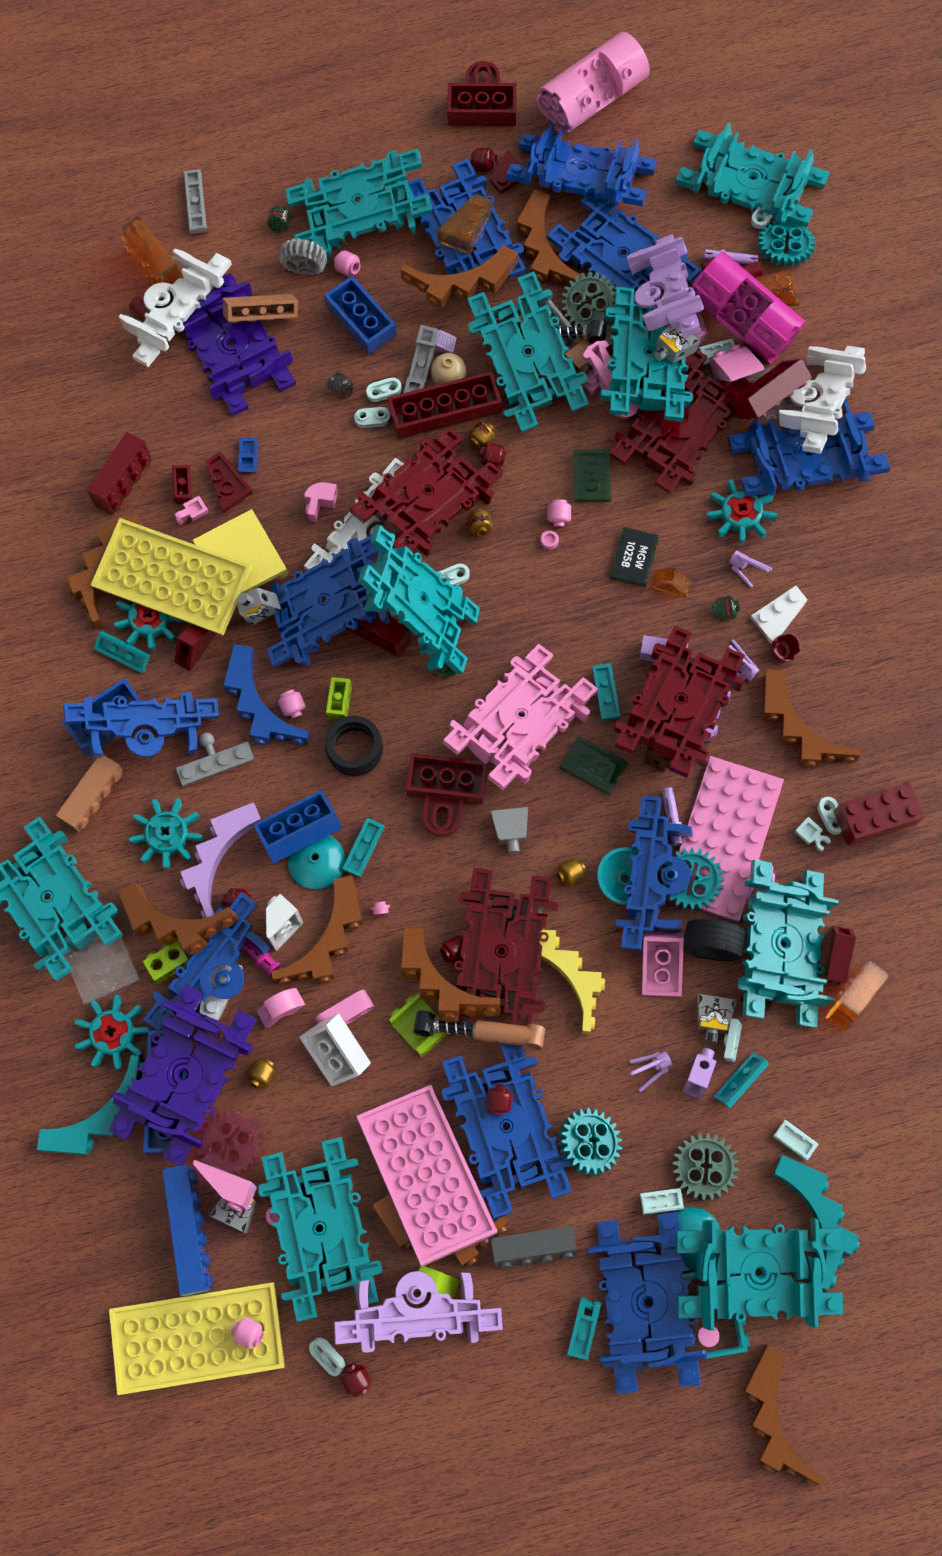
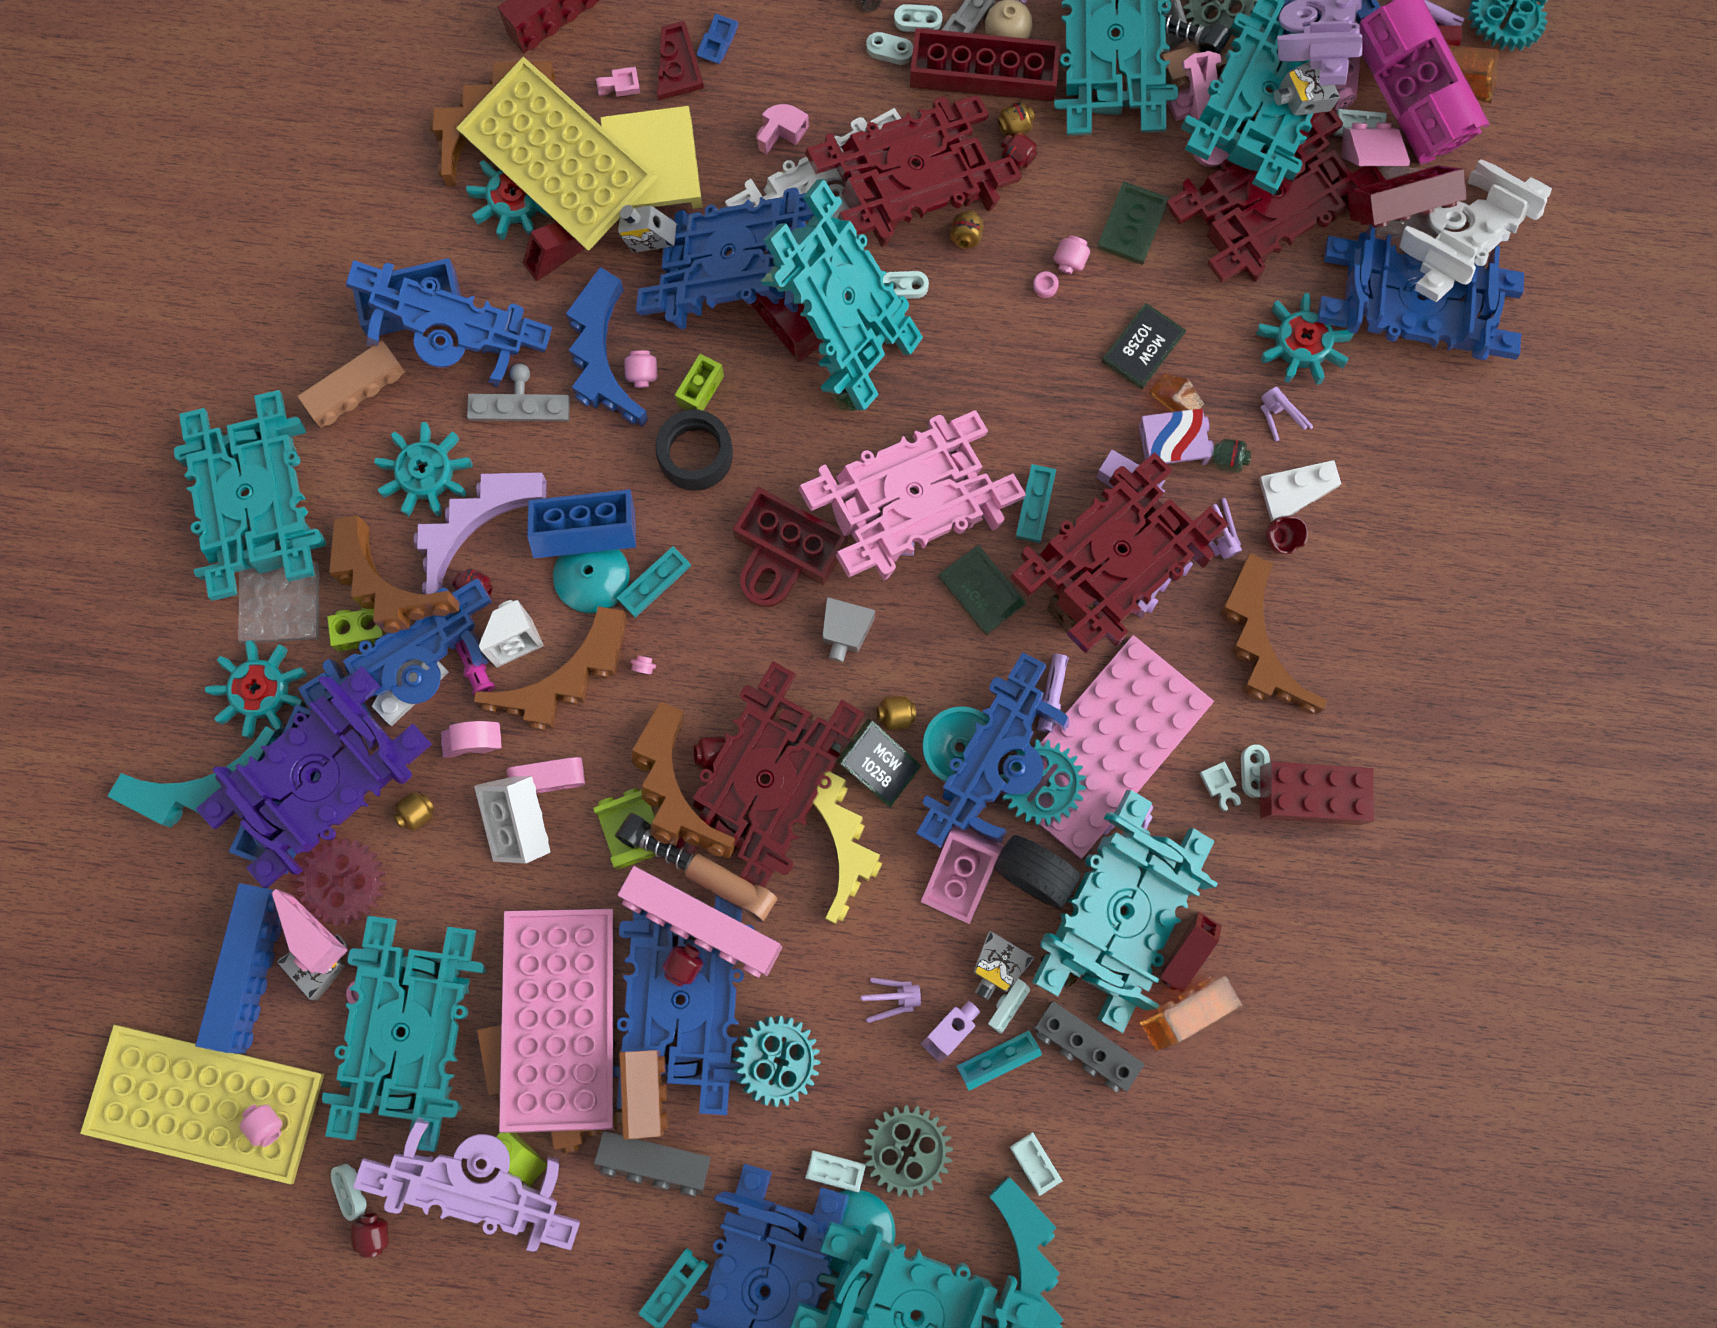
camera: 20 degrees right, 5 degrees up
(121, 652) = (463, 226): teal plate -> none
(181, 483) = (621, 44): dark red brick -> none
(500, 1065) = (699, 920): none -> bright pink brick
(510, 1198) = (643, 1094): none -> slope
(574, 910) = (878, 763): none -> tile
(683, 610) = (1177, 436): none -> panel
(797, 1046) = (1089, 1047): none -> dark grey brick

